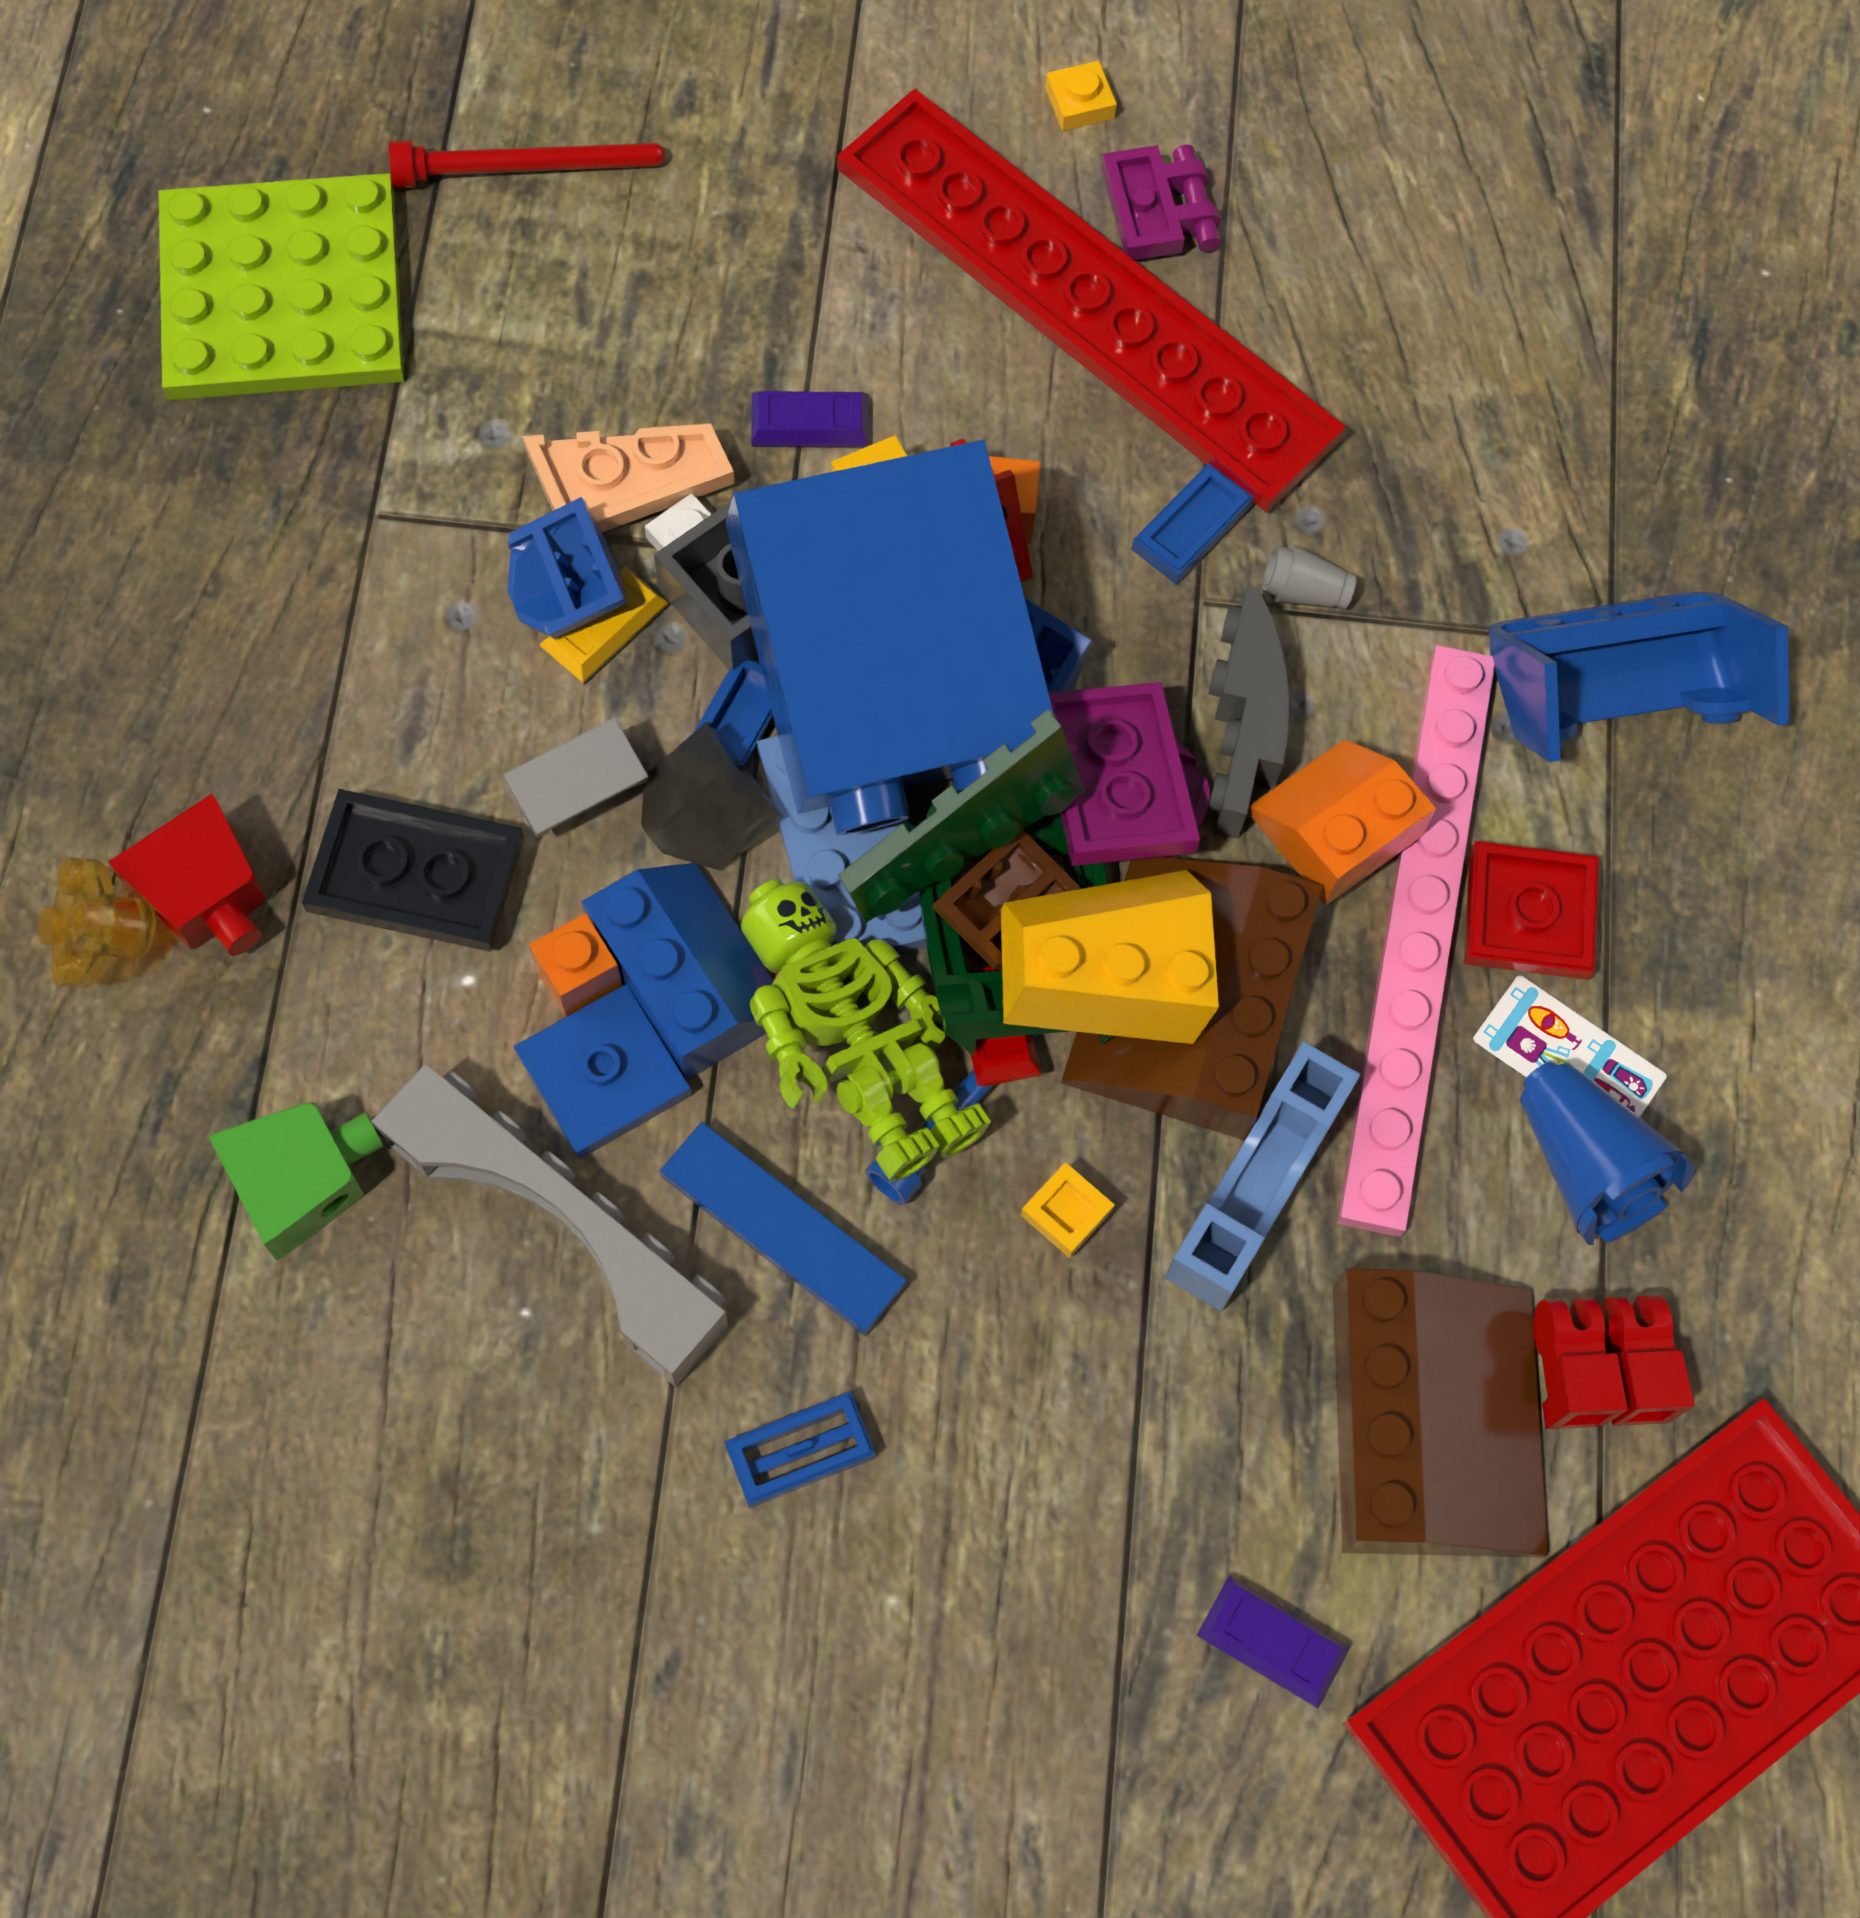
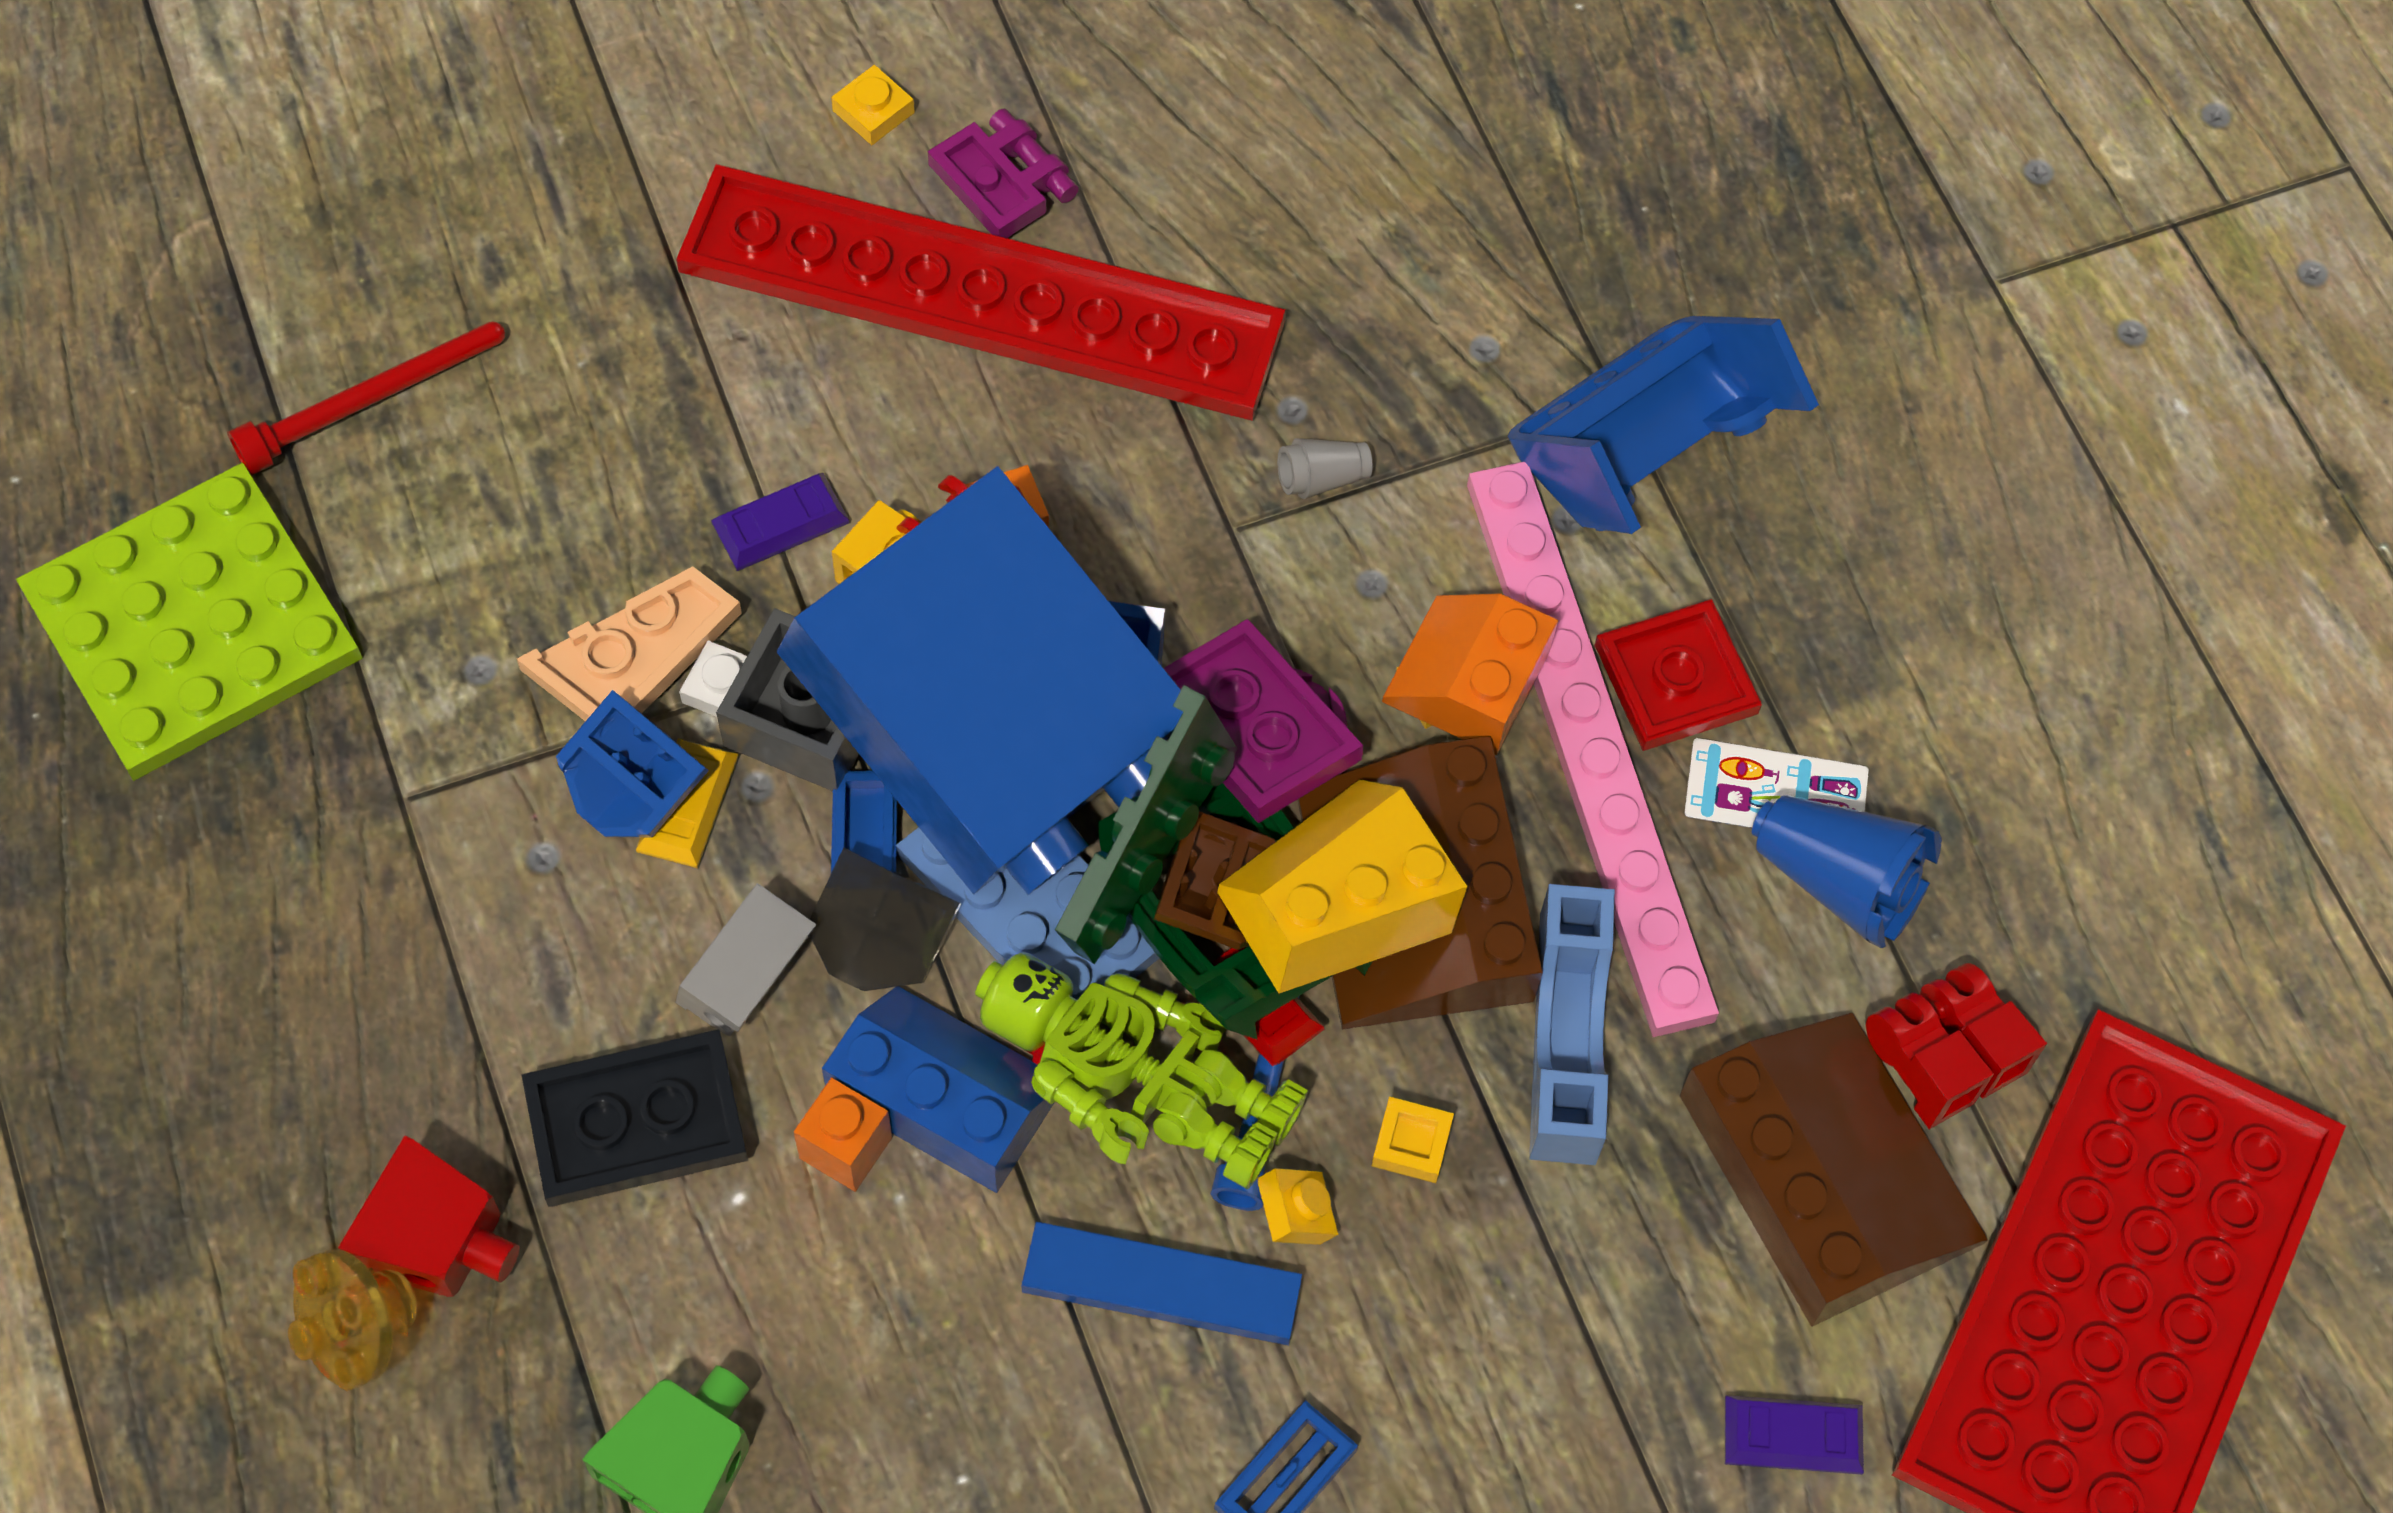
camera: 25 degrees left, 5 degrees down
(453, 1139) = (810, 1348): light grey arch -> none
(602, 1071) = (915, 1220): blue plate -> none
(933, 1219) = (1297, 1206): none -> yellow plate
(1192, 523) = (1189, 460): blue tile -> none
(1254, 705) = (1340, 601): dark grey slope -> none

